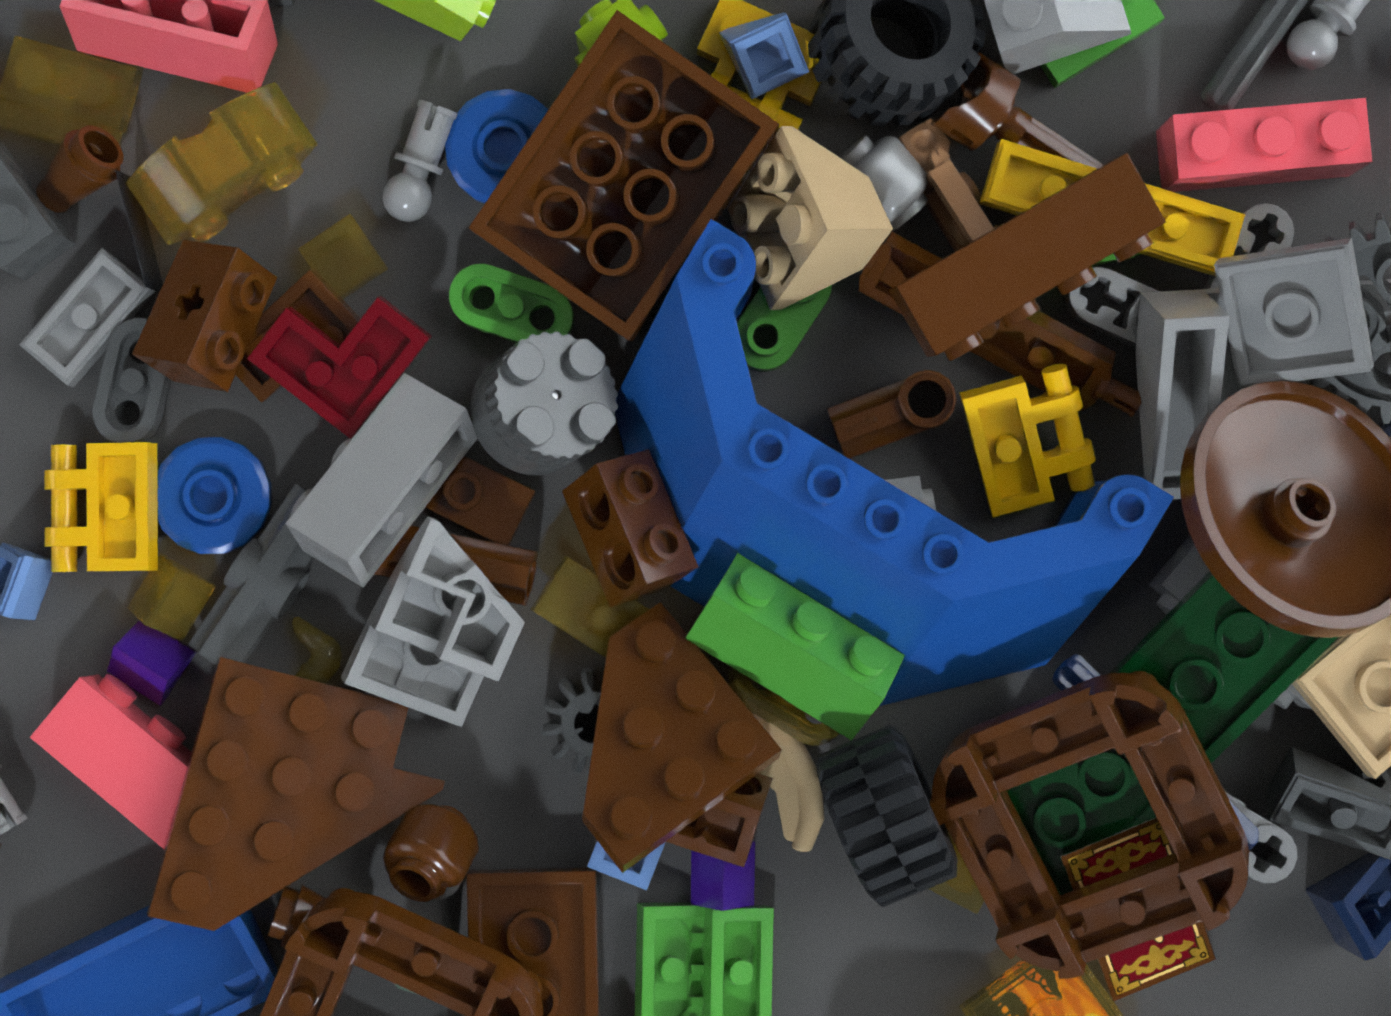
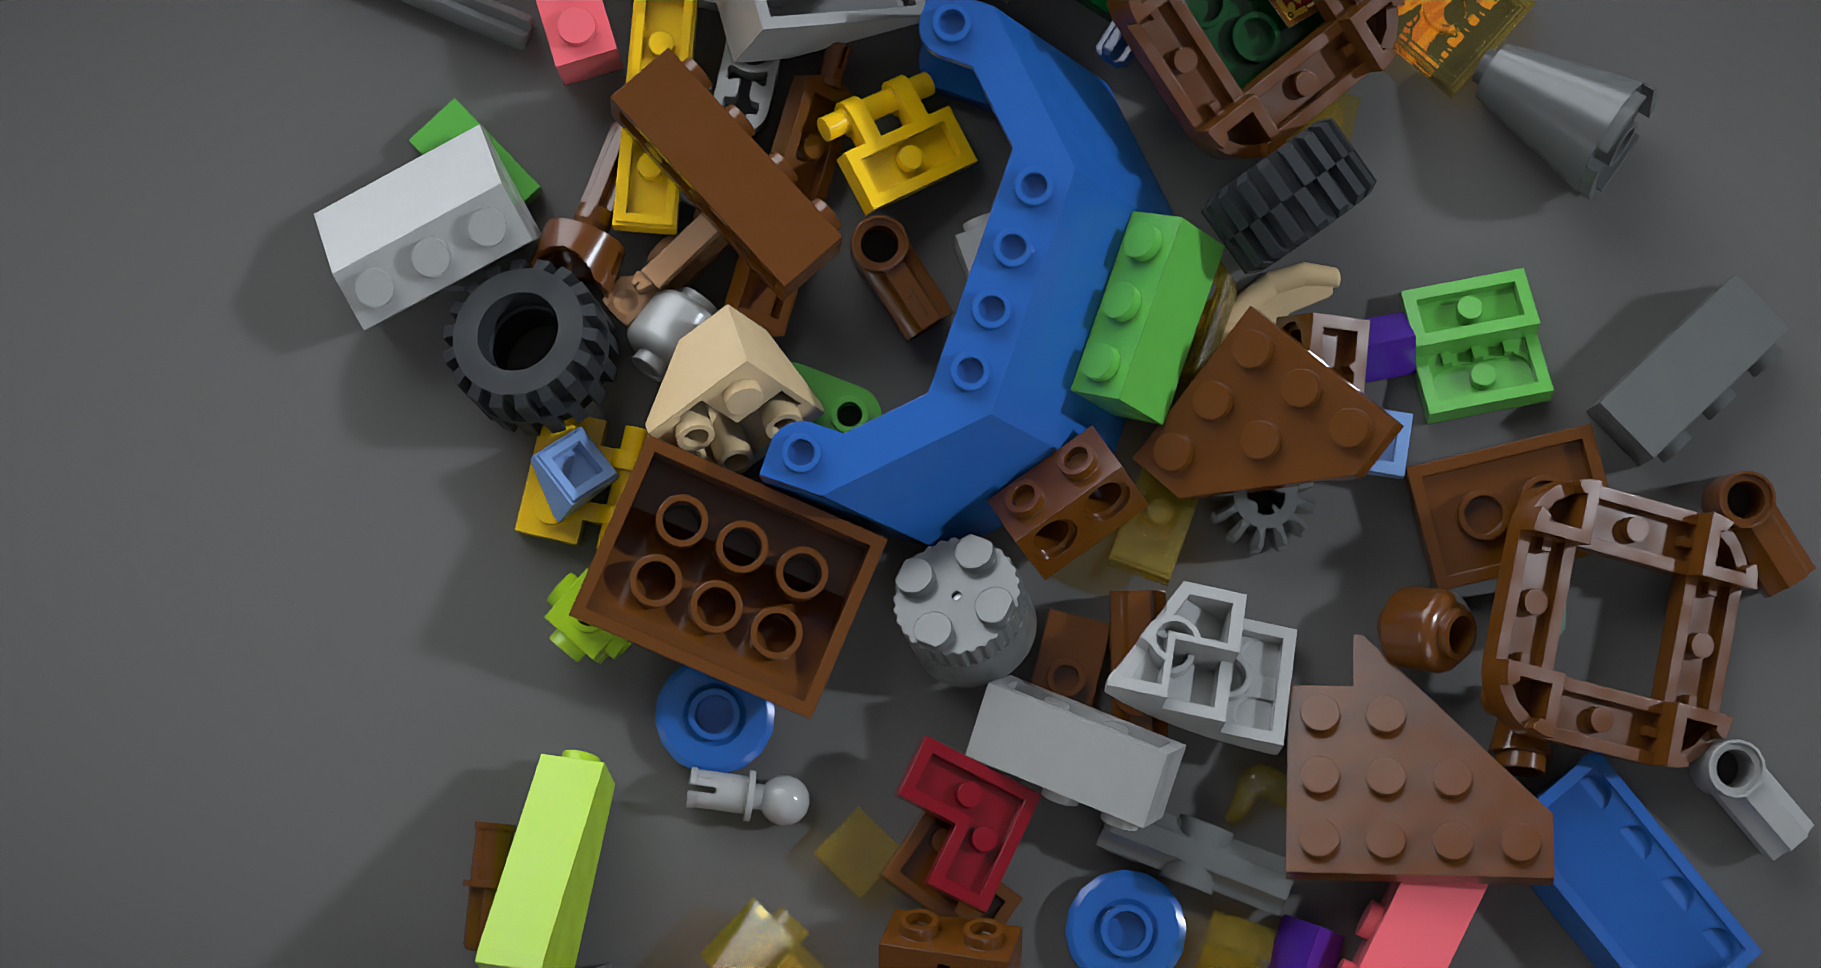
camera: 105 degrees left, 5 degrees down
(513, 304) = (872, 671): bright green plate -> none

